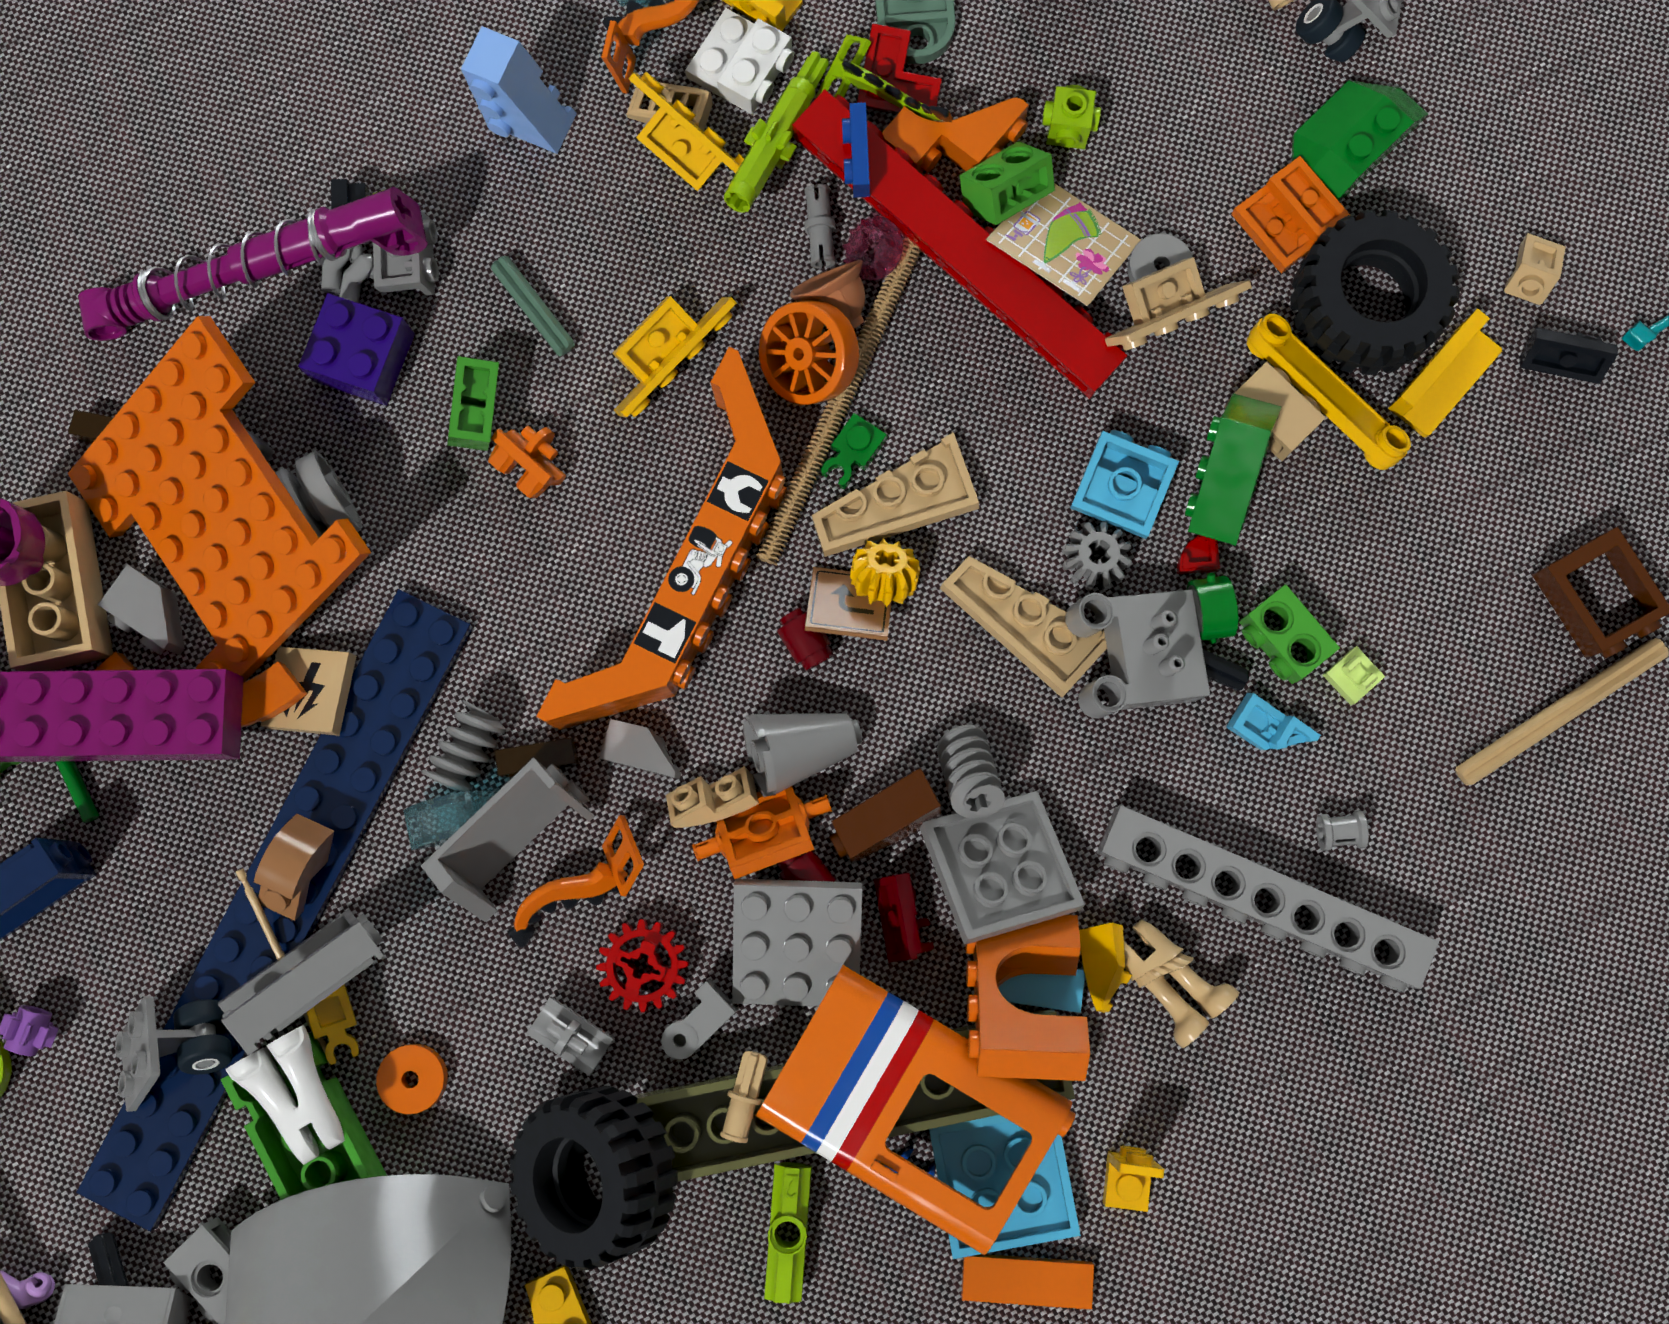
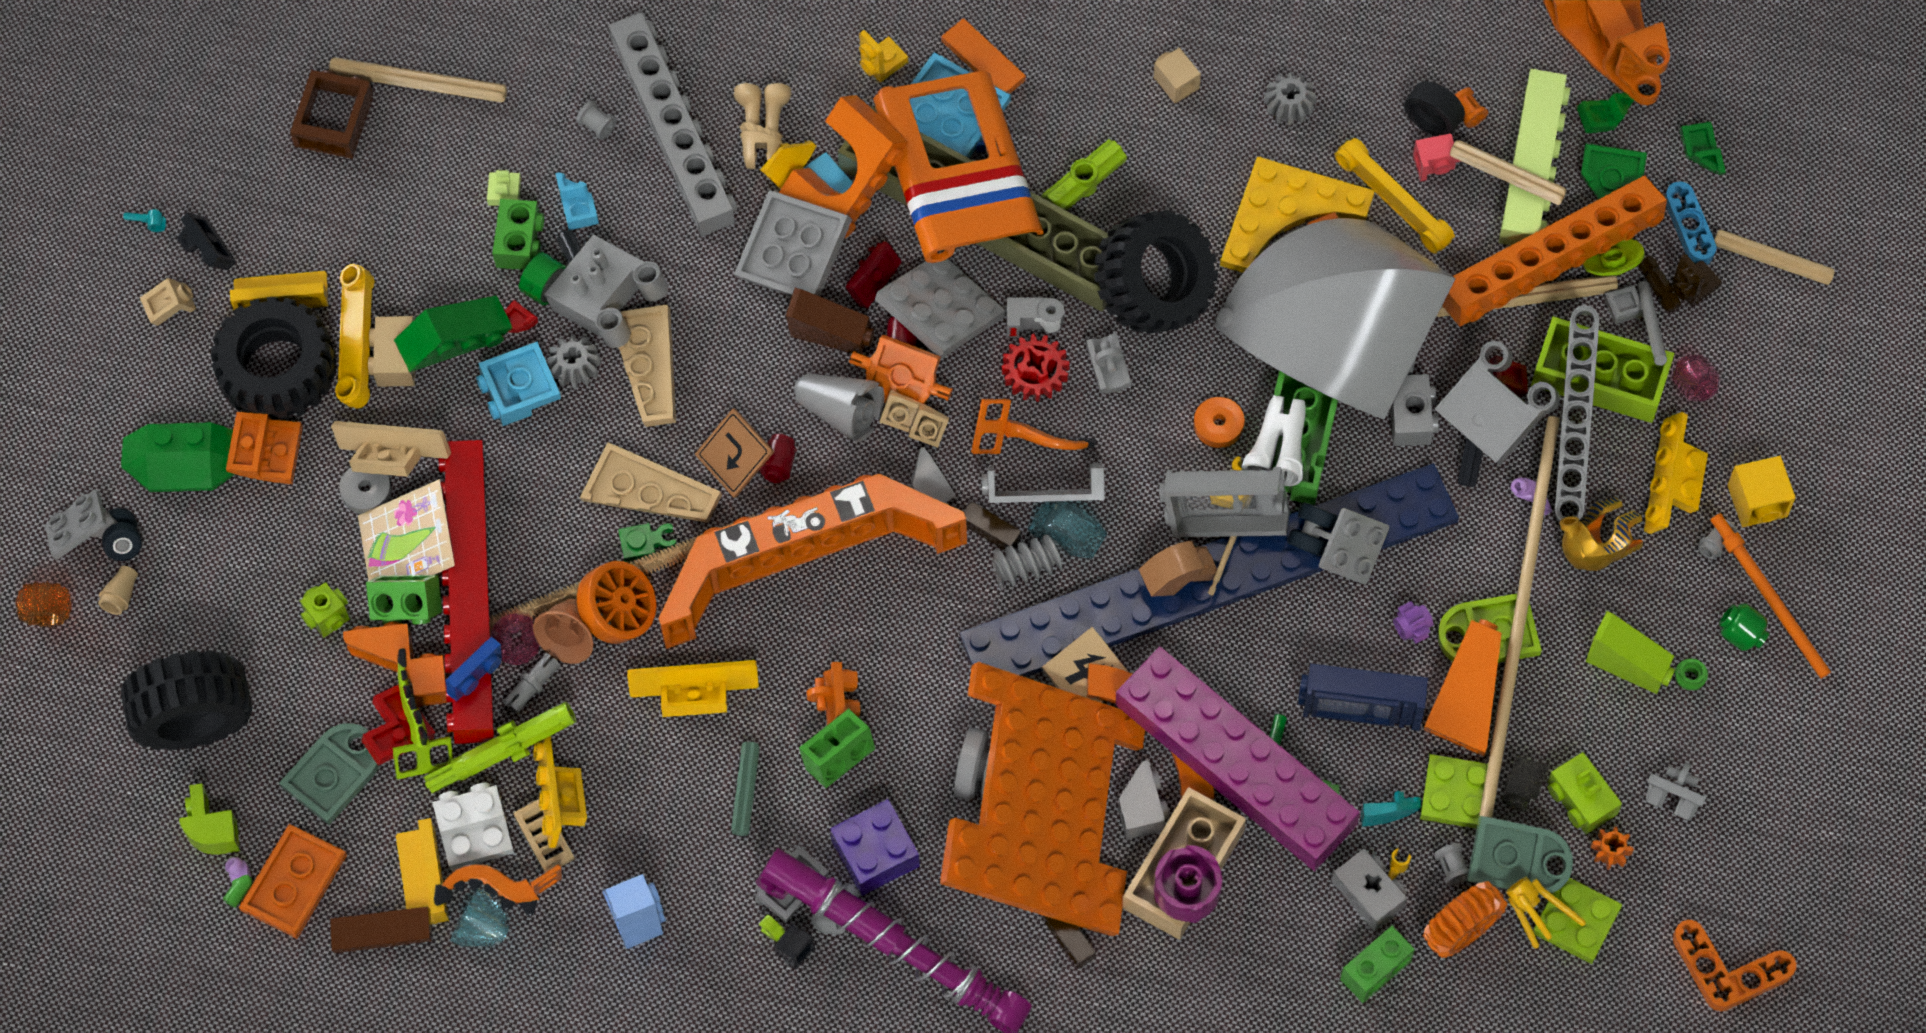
camera: 140 degrees left, 15 degrees down
(744, 1097) = (1039, 242): tan axle -> none
(884, 572) = (698, 450): yellow gear -> none
(970, 772) = (763, 306): light grey piece -> none

